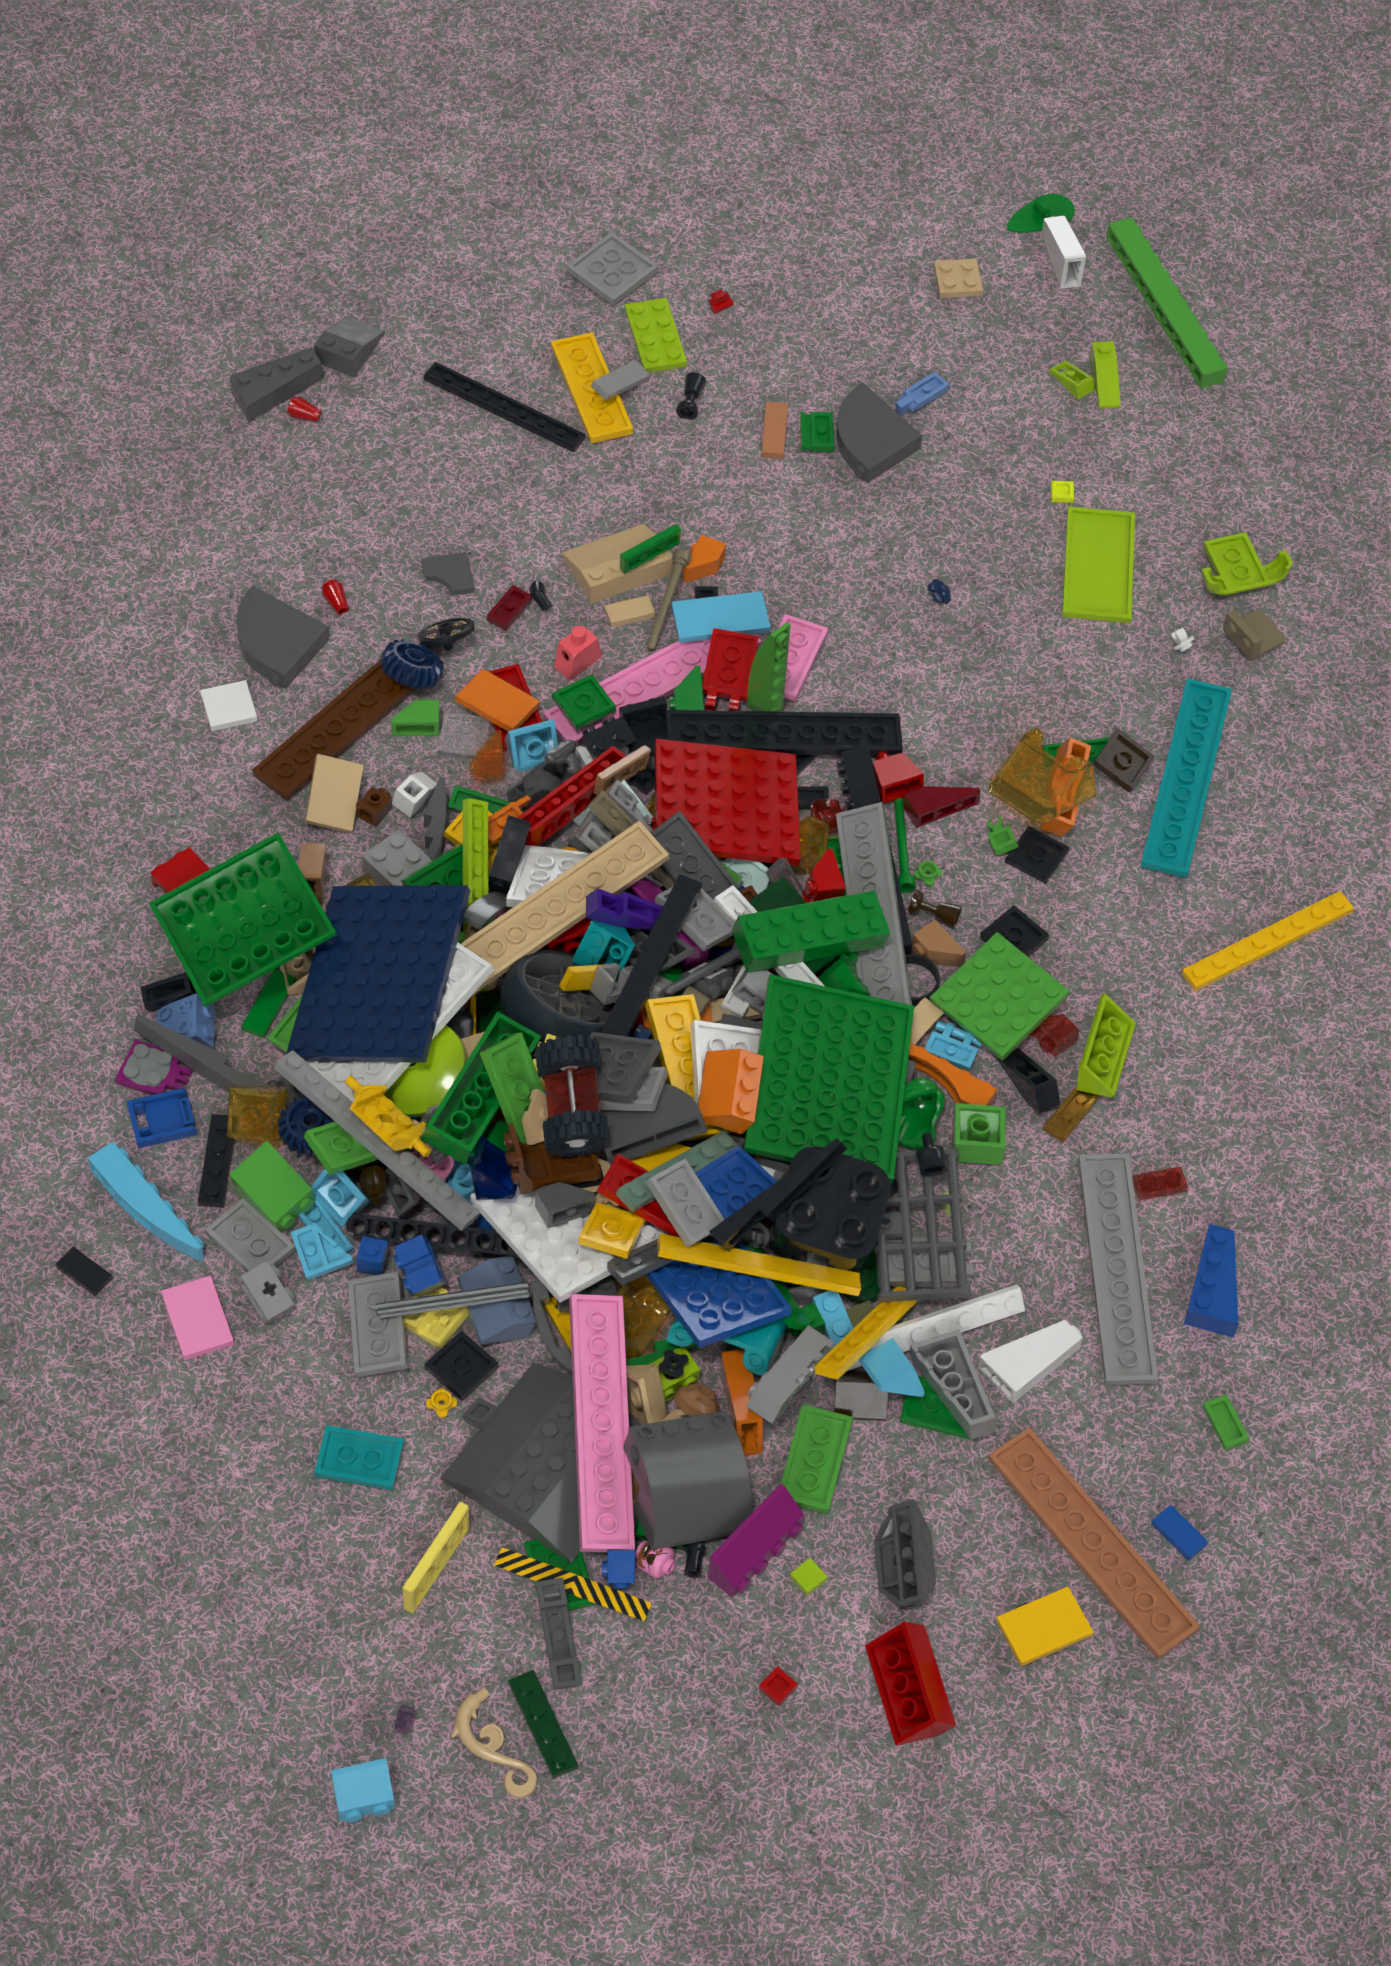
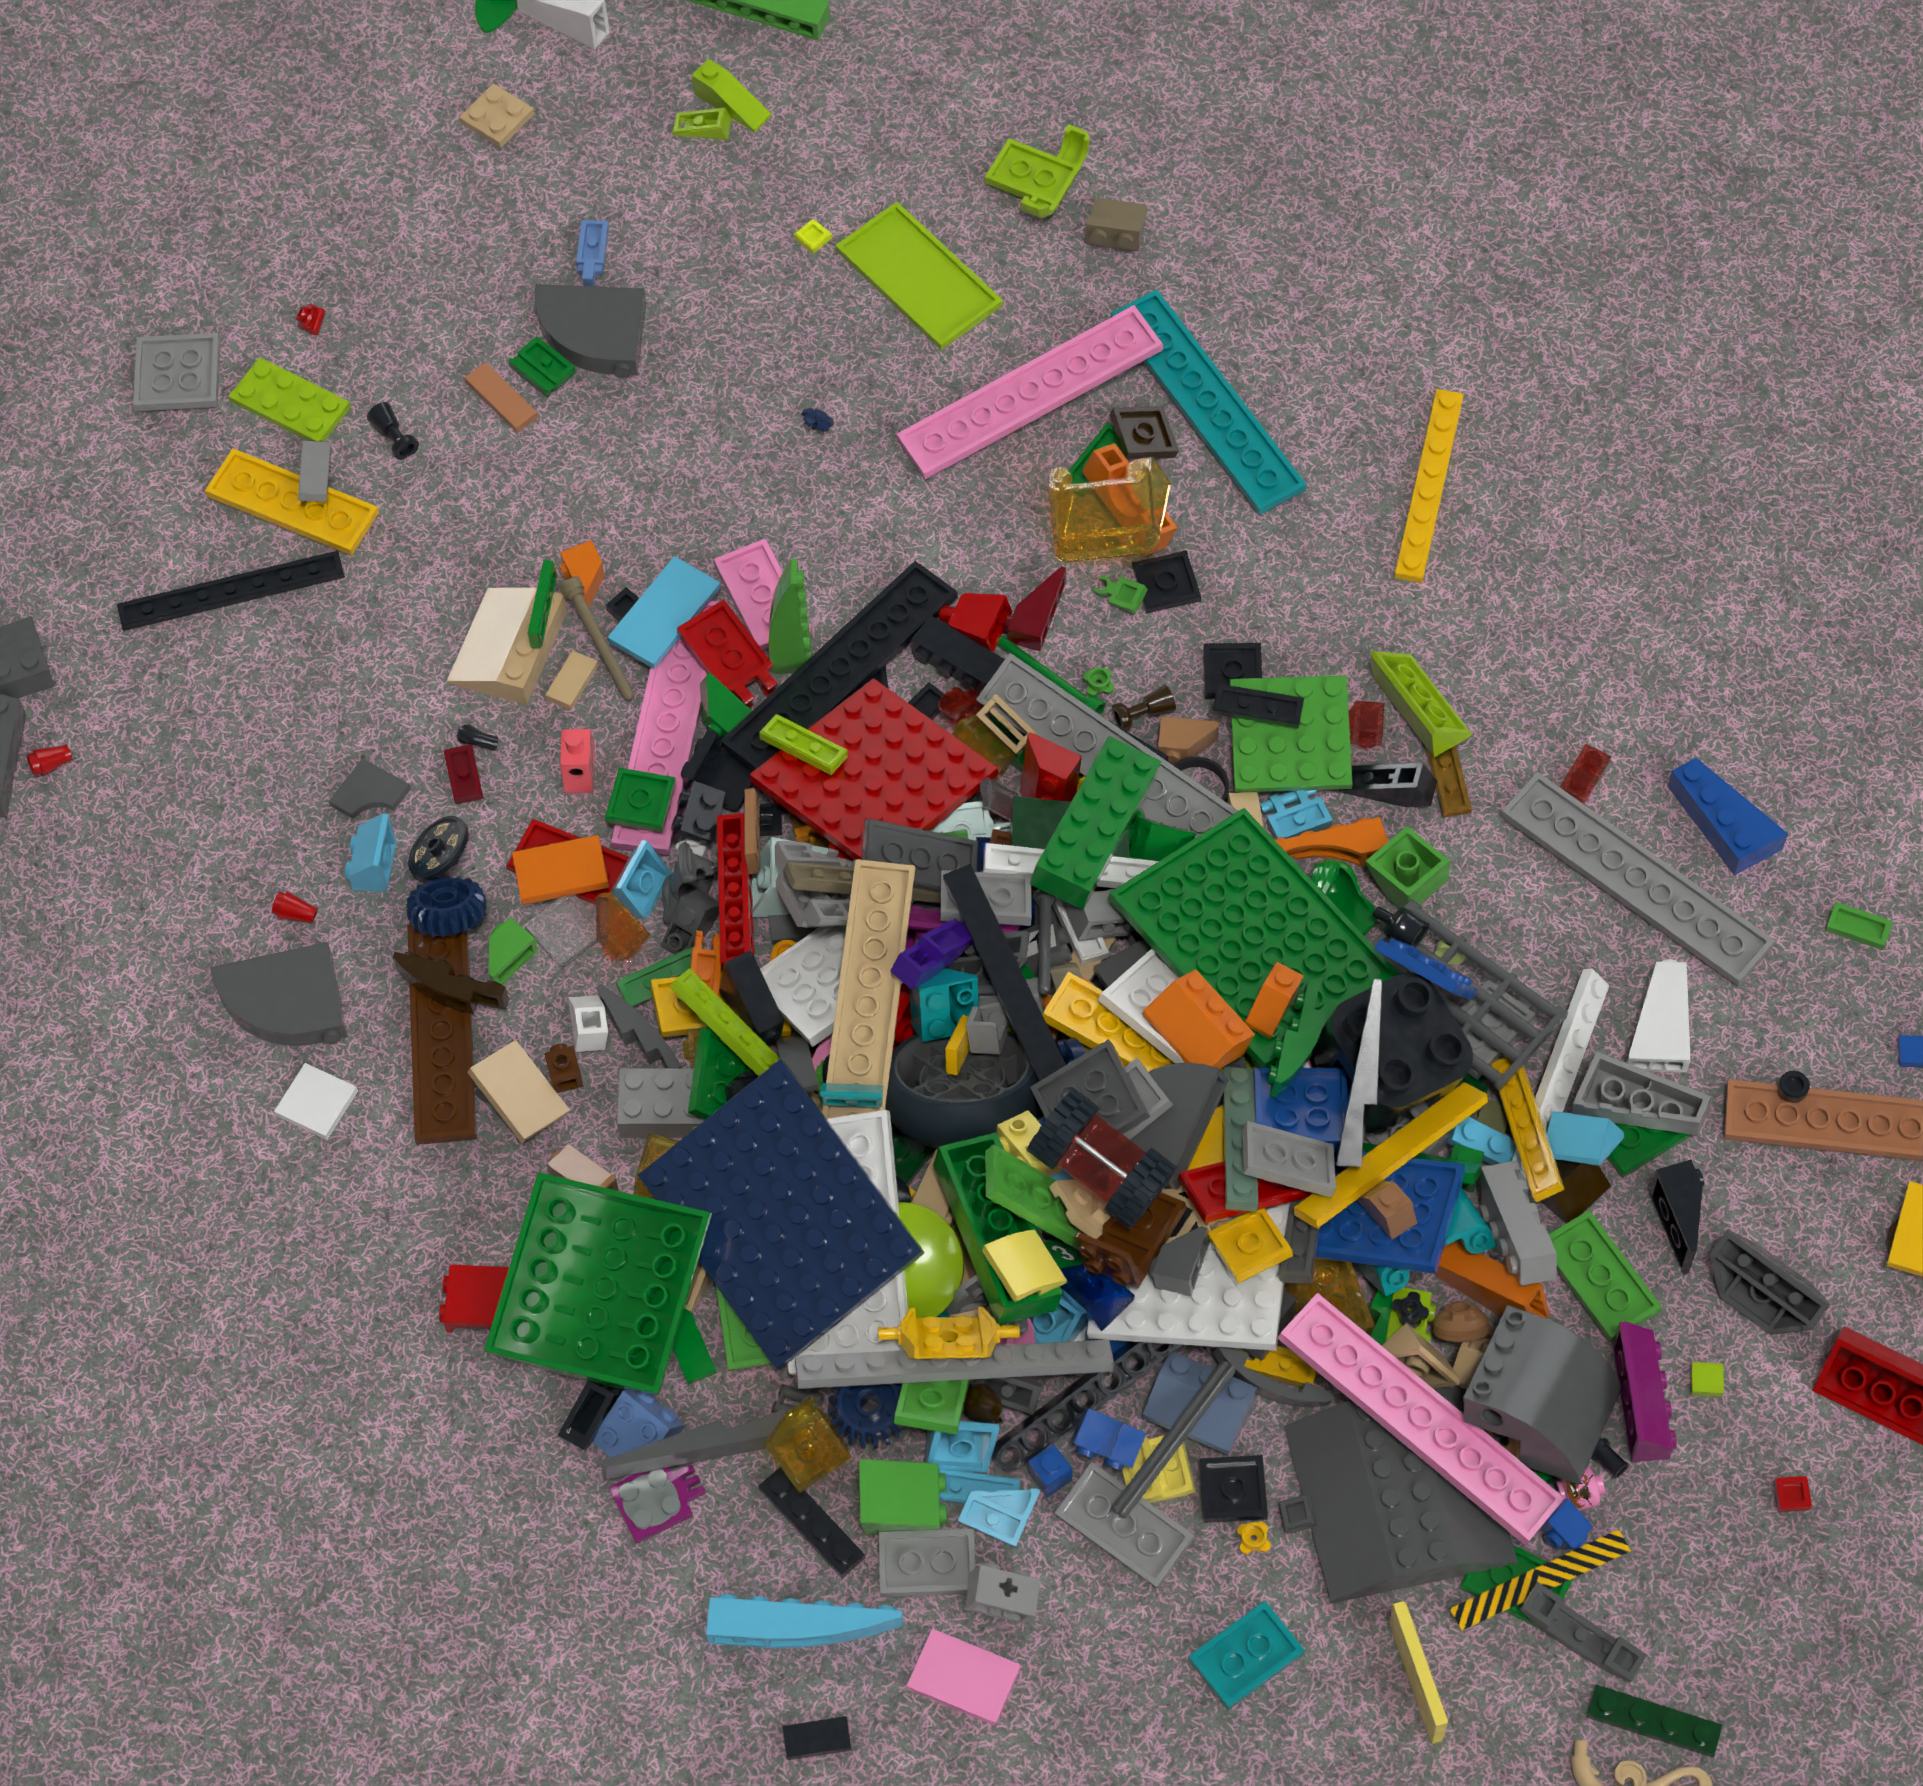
camera: 40 degrees left, 5 degrees up
(167, 1117) = (719, 1529): blue container -> none
(362, 705) = (438, 982): none -> dark brown slope
(408, 606) = (372, 855): none -> medium azure slope
(464, 1113) = (1024, 1264): none -> light yellow slope
(488, 944) = (851, 1095): none -> teal slope
(704, 749) = (803, 744): none -> lime tile
(714, 1288) = (1389, 1208): none -> medium nougat slope
(770, 1154) = (1297, 1042): none -> green slope
(791, 1116) = (1274, 1000): none -> orange slope
(836, 838) = (990, 707): none -> tan tile
(905, 1185) = (1427, 967): none -> blue plate
(906, 1466) = (1677, 1200): none -> black slope
(993, 959) = (1258, 705): none -> black tile
(1063, 1467) = (1793, 1086): none -> black tile
(1082, 680) = (1029, 392): none -> bright pink plate
(1182, 640) = (1067, 282): white plate -> none

